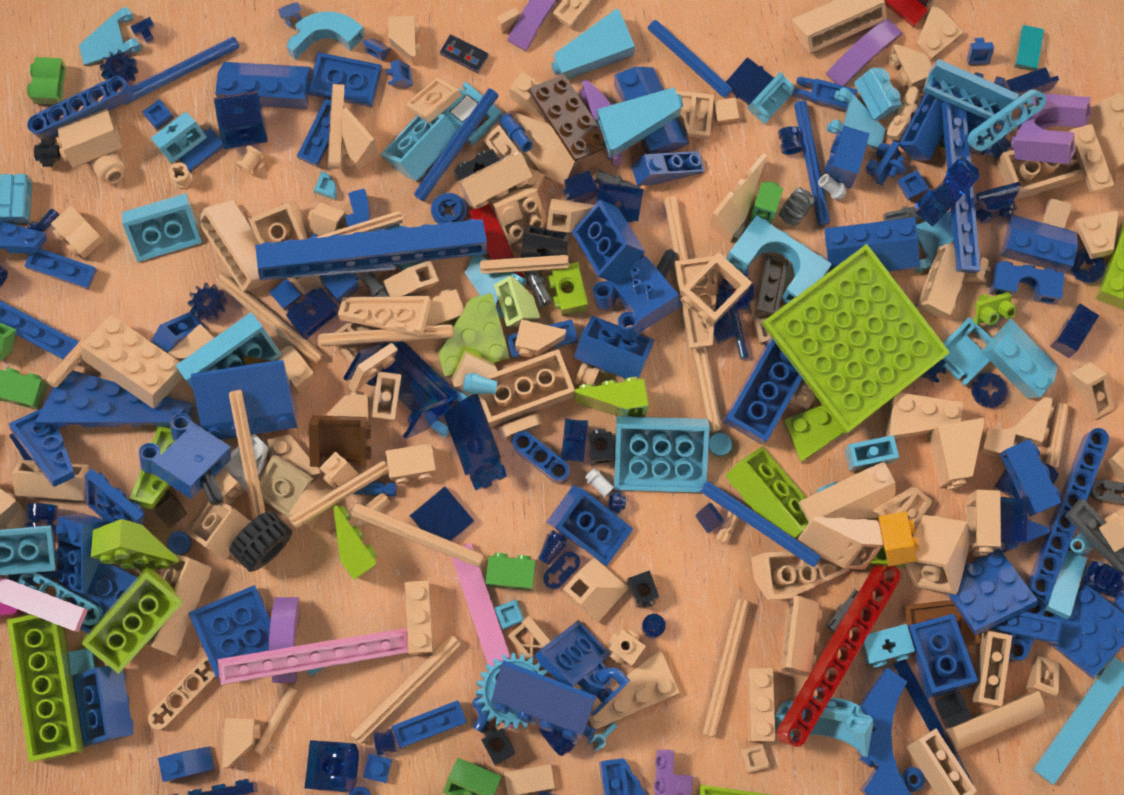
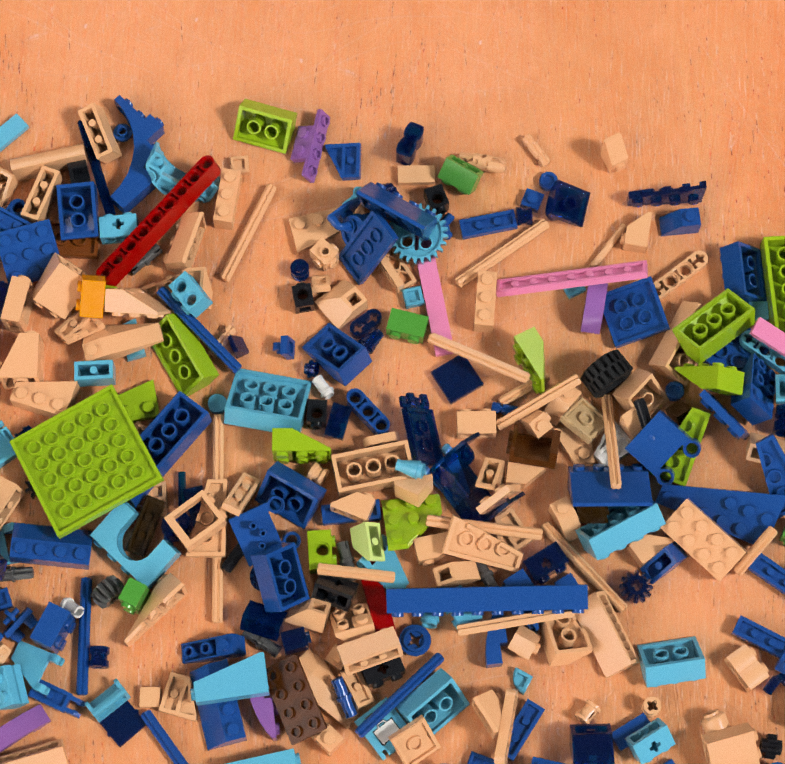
camera: 170 degrees left, 5 degrees down
(624, 611) = (320, 283): none -> light nougat tile
(652, 522) = (285, 347): none -> blue tile
(670, 332) = (241, 494): none -> light nougat plate
(776, 560) = (191, 293): none -> medium azure brick

